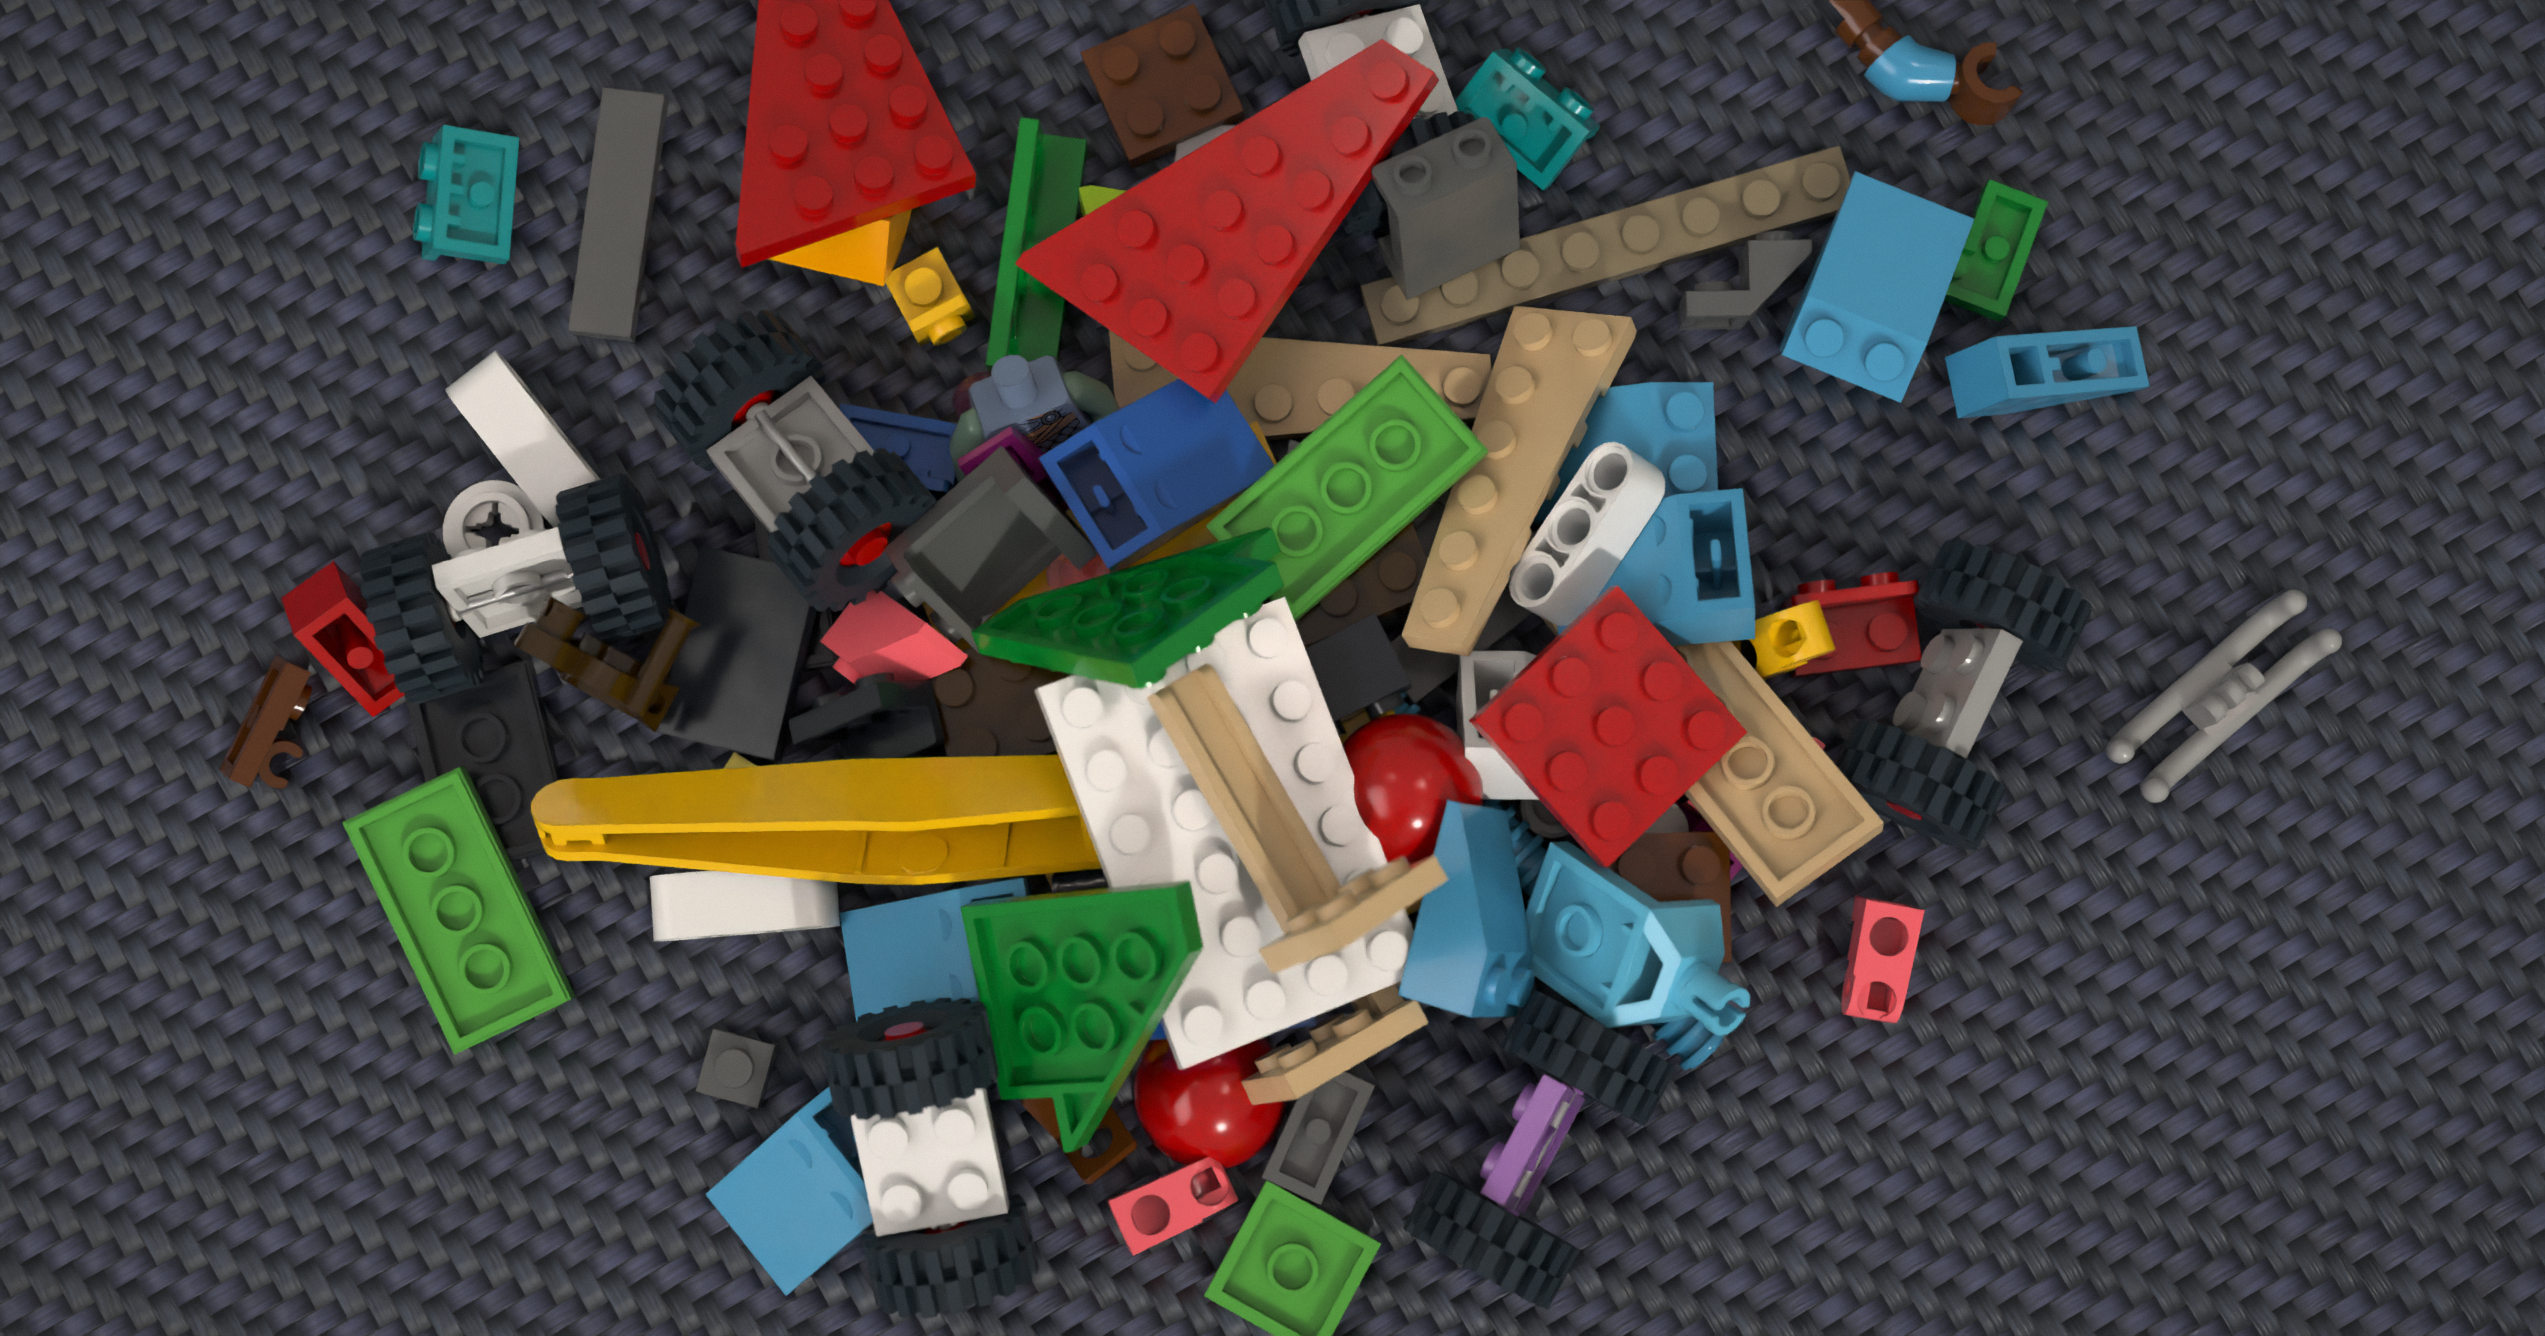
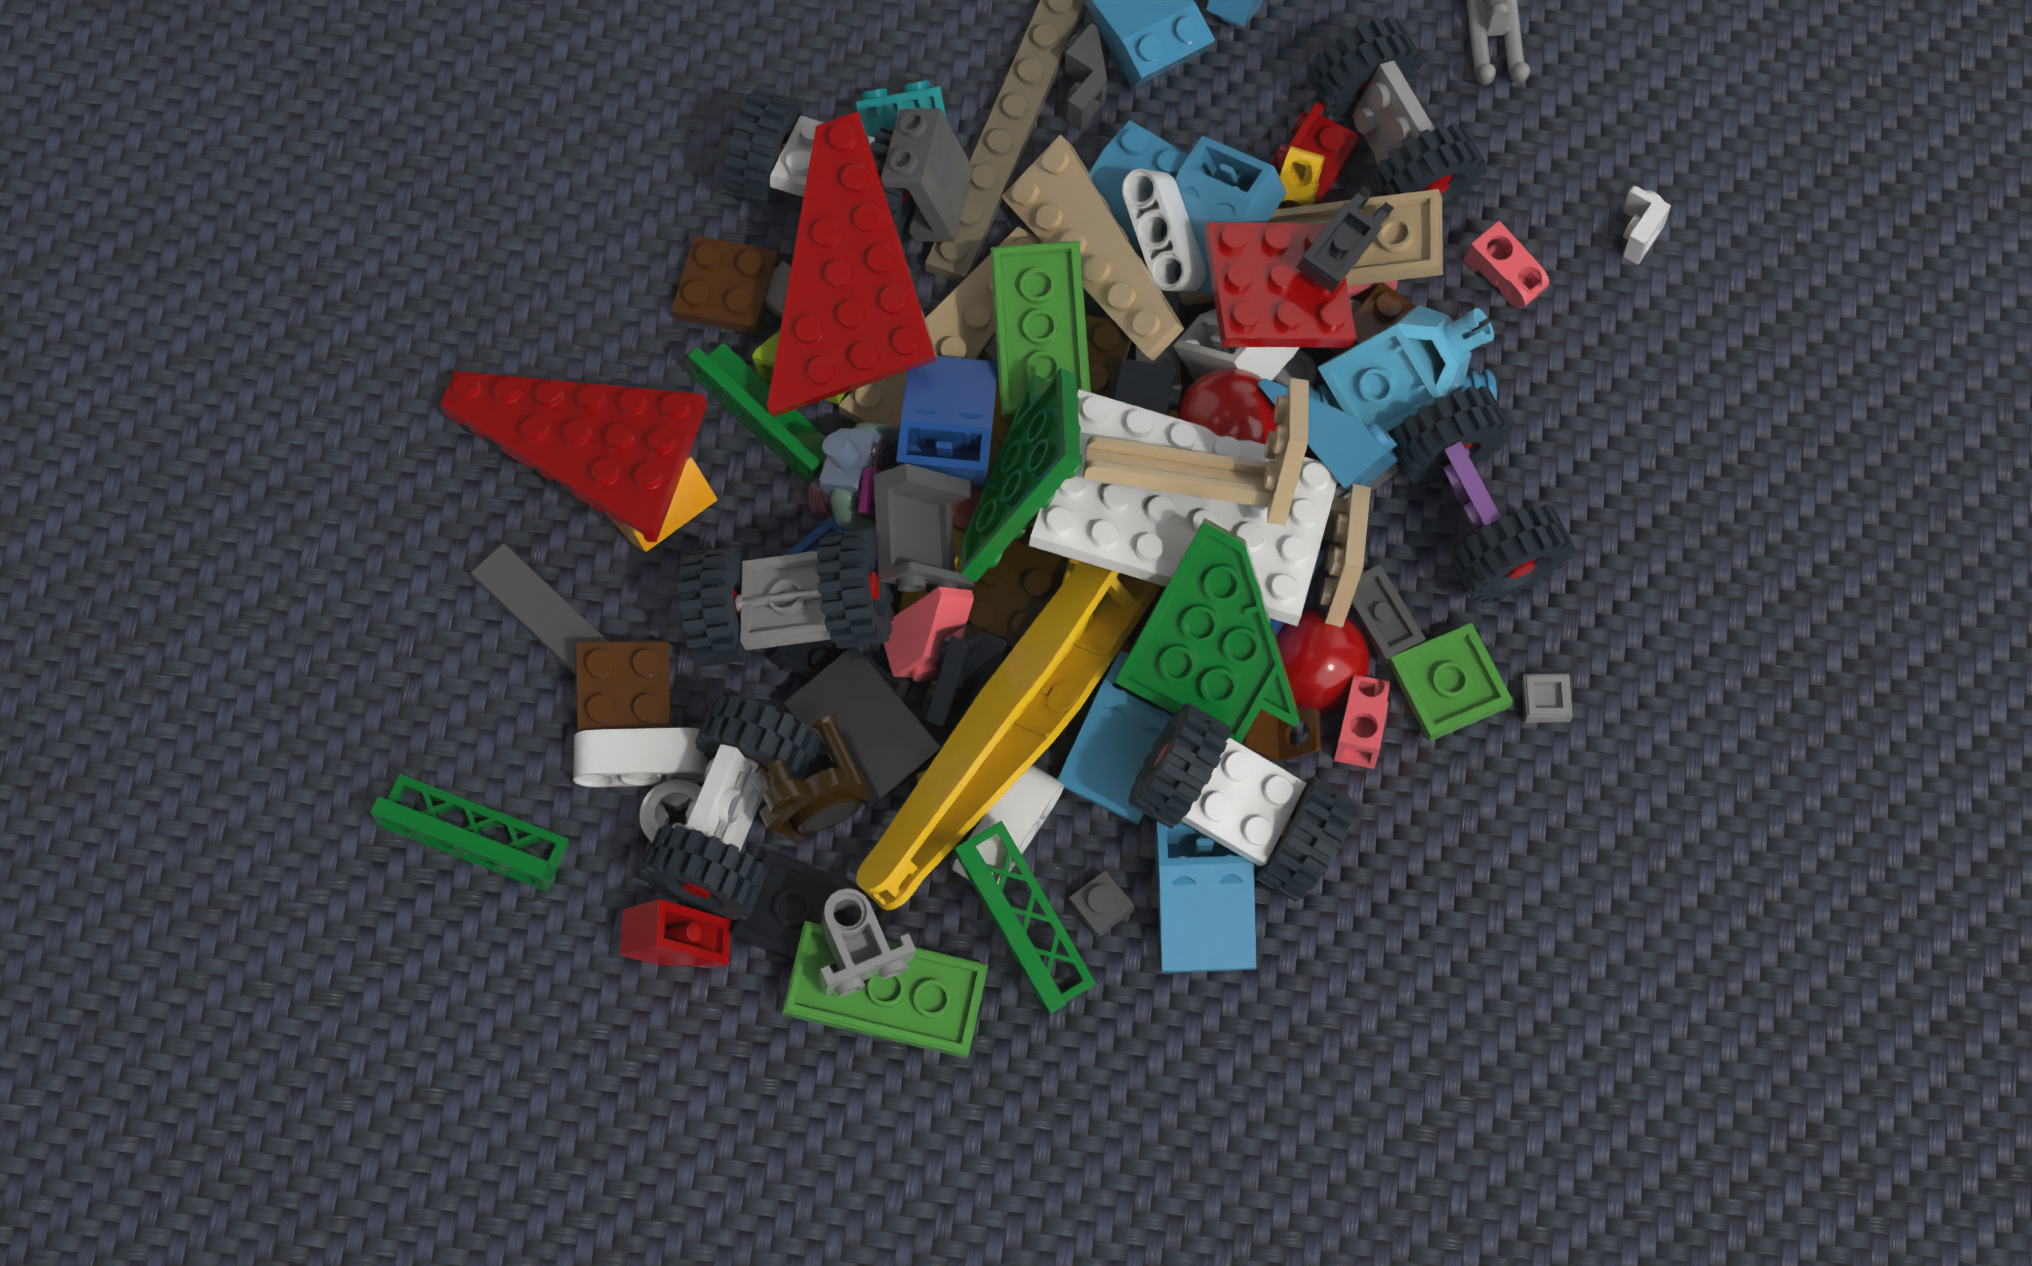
camera: 55 degrees left, 15 degrees down
(278, 699) = (683, 1021): reddish brown plate -> none
(288, 331) = (467, 842): none -> green fence
(458, 855) = (860, 948): none -> light grey pin
(467, 195) = (468, 690): teal bracket -> none
(588, 358) = (622, 685): none -> reddish brown plate
(613, 994) = (1009, 925): none -> green fence
(930, 299) = (743, 487): yellow bracket -> none
(1715, 765) = (1343, 242): none -> black hinge
(2054, 1085) = (1648, 220): none -> white bracket

